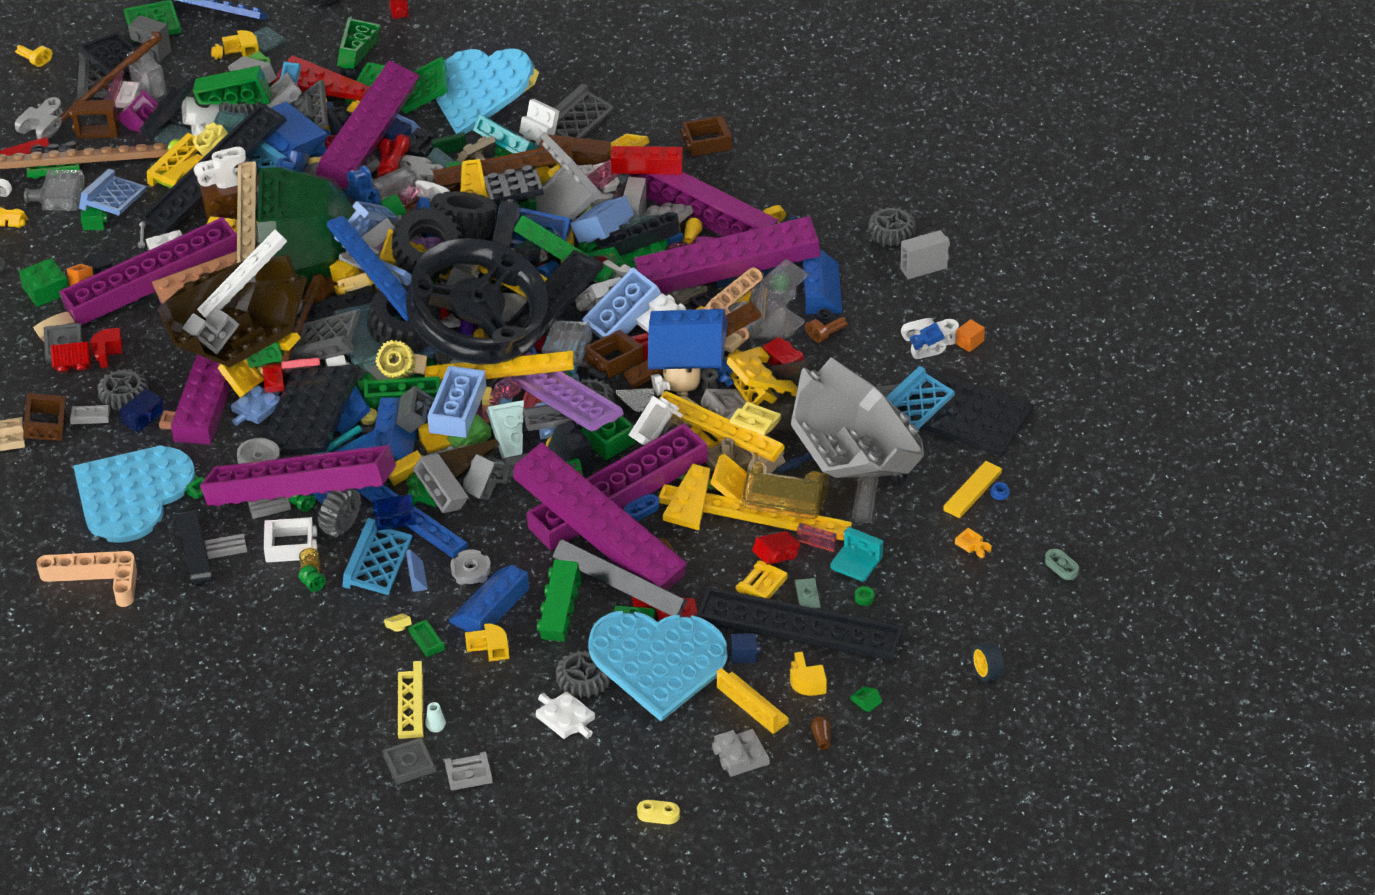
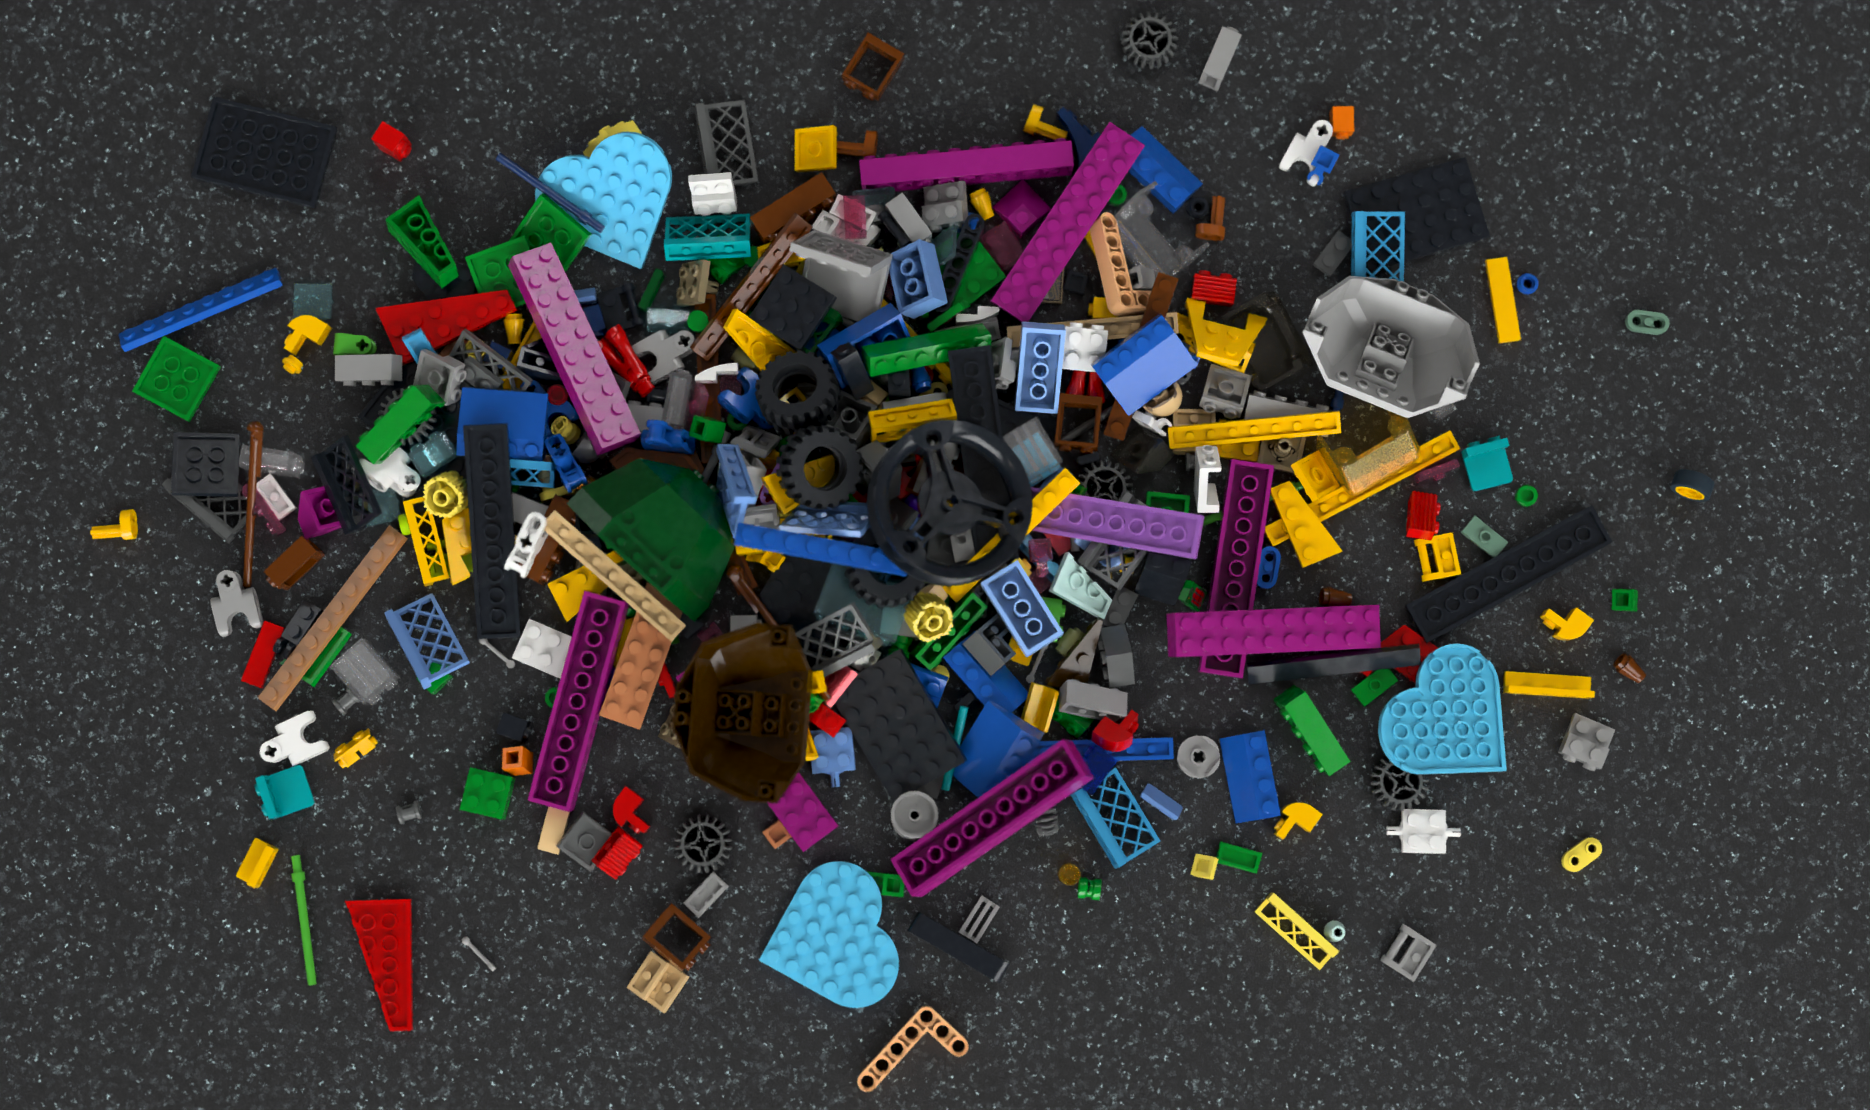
camera: 50 degrees left, 40 degrees up
(141, 30) = (214, 410): dark grey brick -> none
(141, 410) = (749, 853): clear blue brick -> none
(212, 332) = (762, 750): light grey brick -> none
(243, 273) = (725, 669): white plate -> none
(288, 527) = (1016, 887): white window -> none
(409, 761) = (1352, 984): dark grey tile -> none
(432, 510) = (1114, 736): none -> red brick
(453, 82) = (584, 216): none -> dark blue bar
(646, 160) = (891, 176): red brick -> none
(744, 648) = (1494, 640): dark blue brick -> none
(755, 418) = (1285, 401): light yellow slope -> none
(972, 541) = (1556, 362): light orange plate -> none

